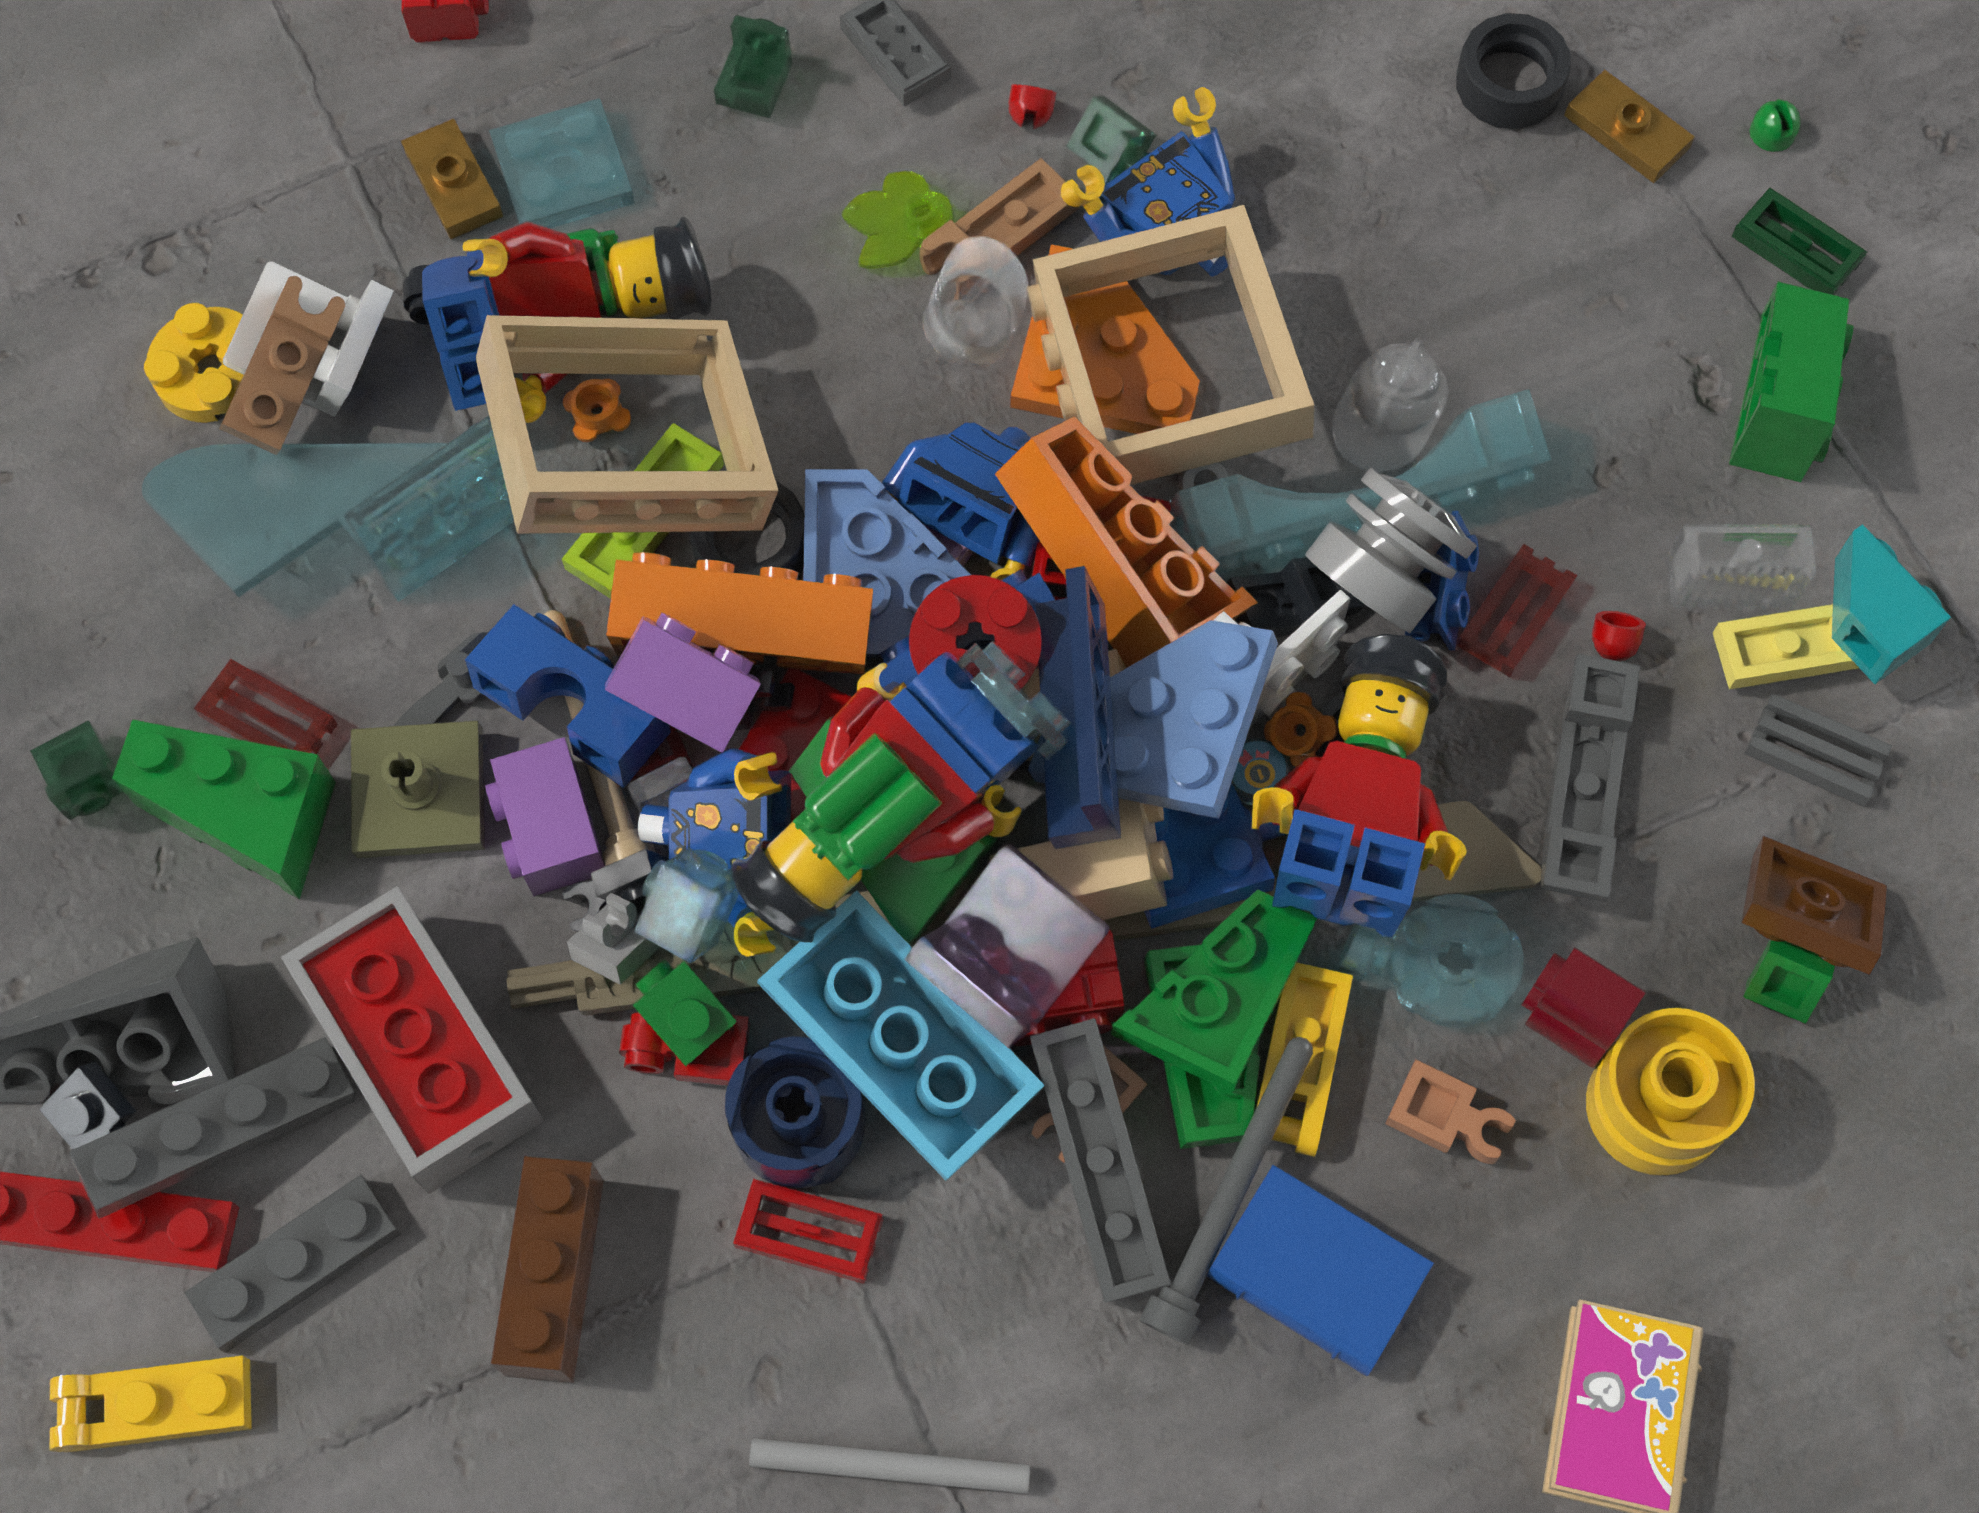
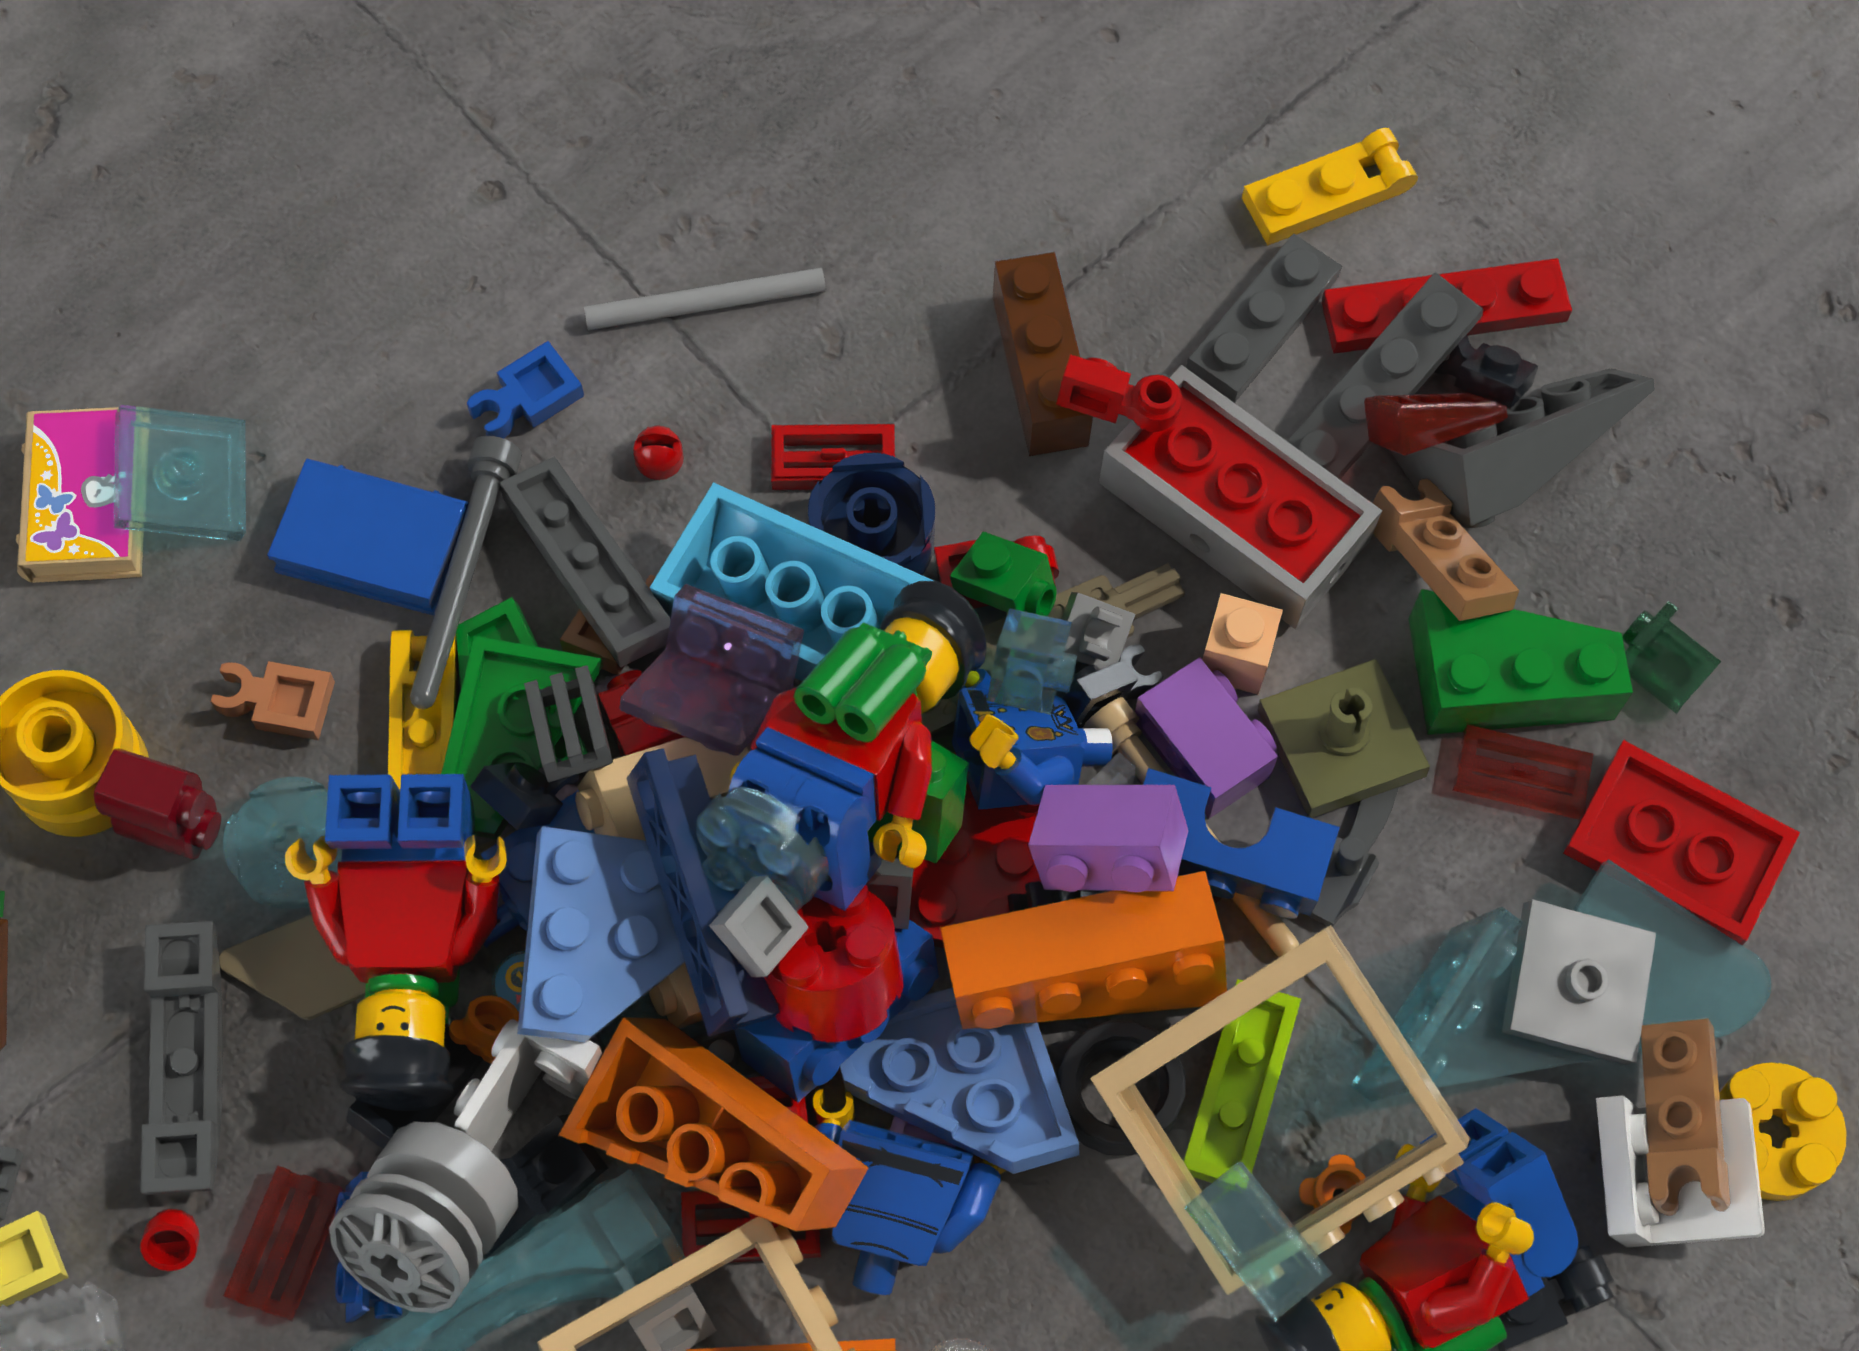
camera: 160 degrees right, 0 degrees up
(158, 607) = (1683, 840): none -> red plate
(212, 1033) = (1425, 420): none -> clear red slope
(239, 915) = (1443, 552): none -> medium nougat plate
(308, 490) = (1579, 982): none -> light grey plate
(476, 893) = (1242, 641): none -> light nougat brick
(510, 1151) = (1104, 392): none -> red plate
(686, 332) = (1258, 1240): none -> clear light blue tile
(989, 1302) = (655, 460): none -> red hinge
(1038, 637) = (759, 926): none -> light grey tile
(1106, 1398) = (532, 387): none -> blue plate
(1162, 995) = (561, 694): none -> dark grey tile
(1225, 900) = (521, 793): none -> black plate
(1514, 1393) = (179, 473): none -> clear light blue plate

